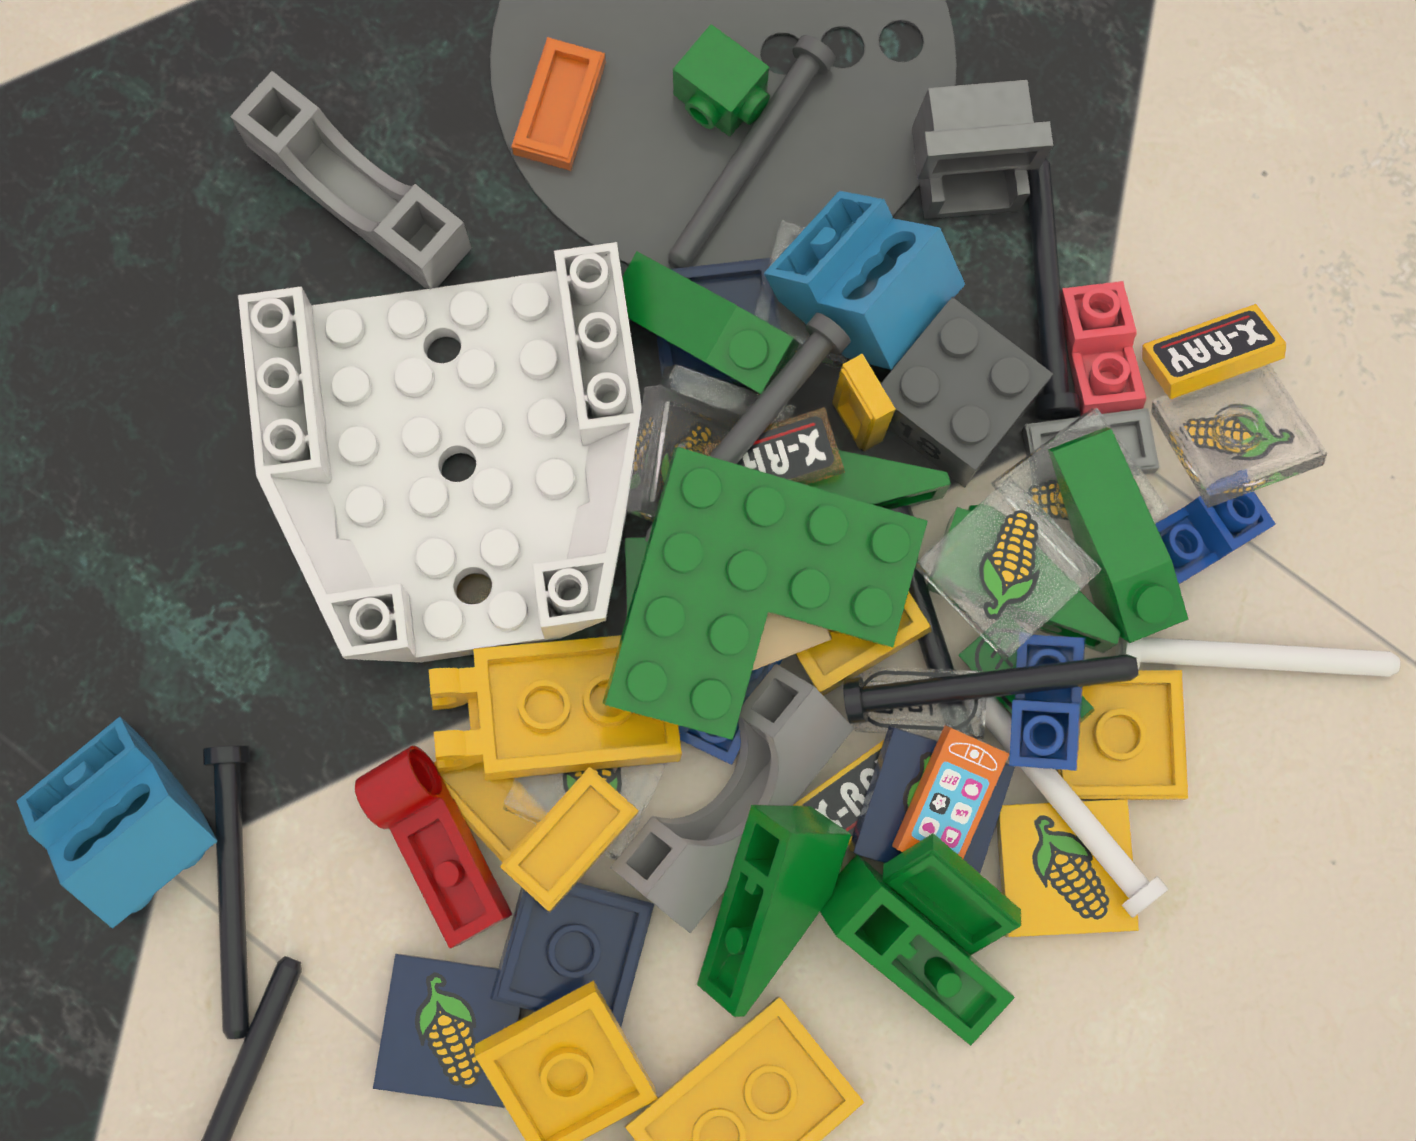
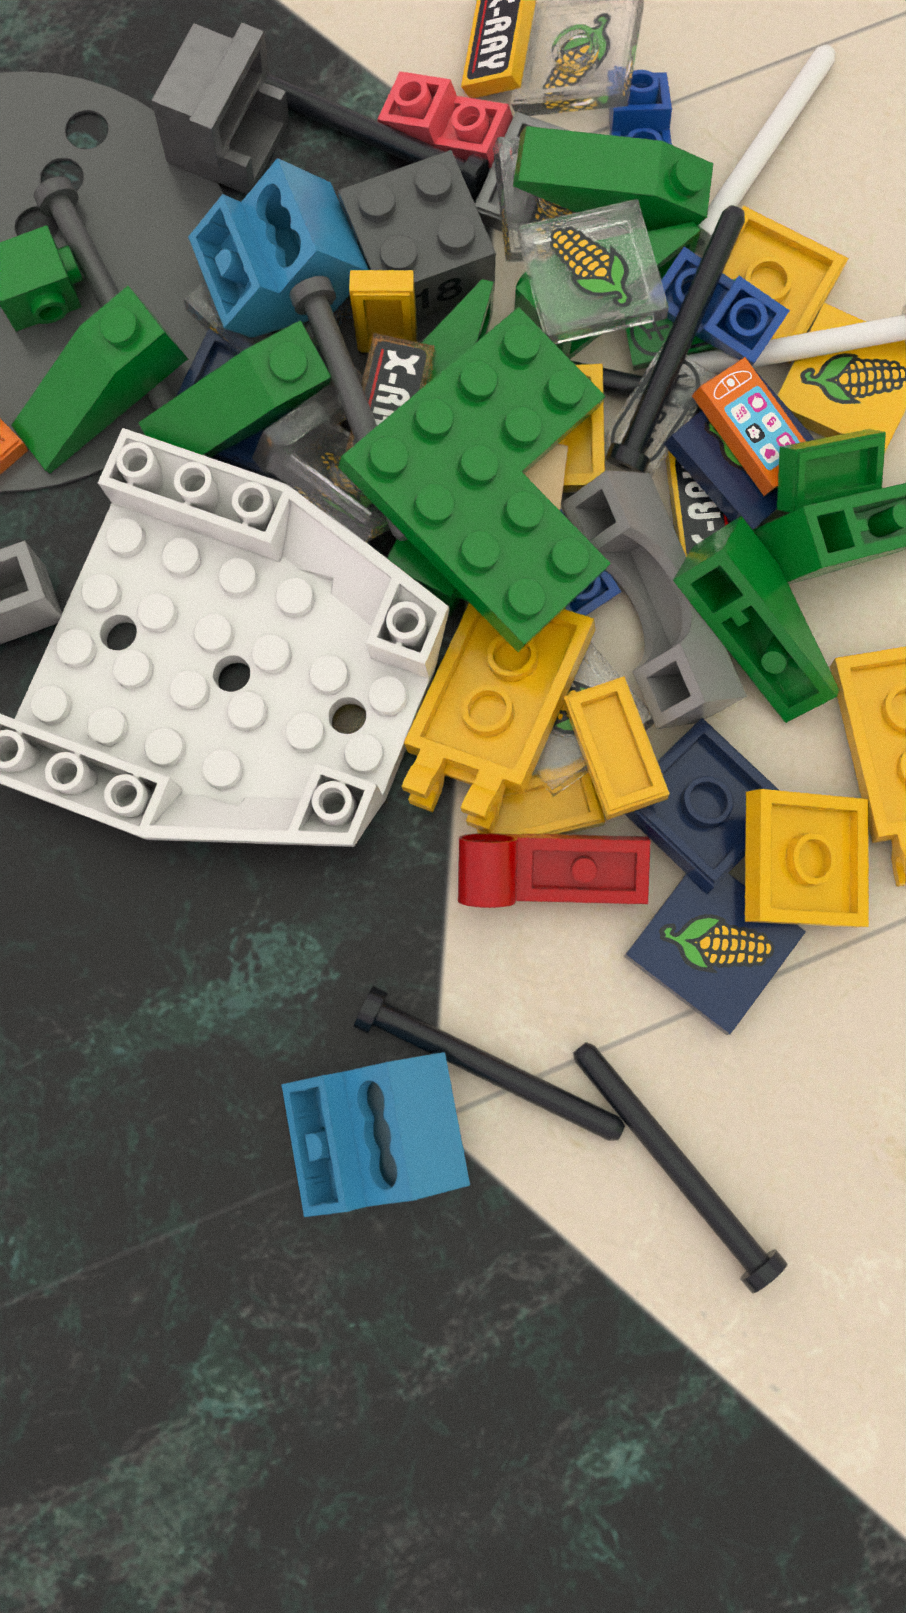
camera: 55 degrees left, 0 degrees up
(659, 194) = (97, 378): none -> green slope

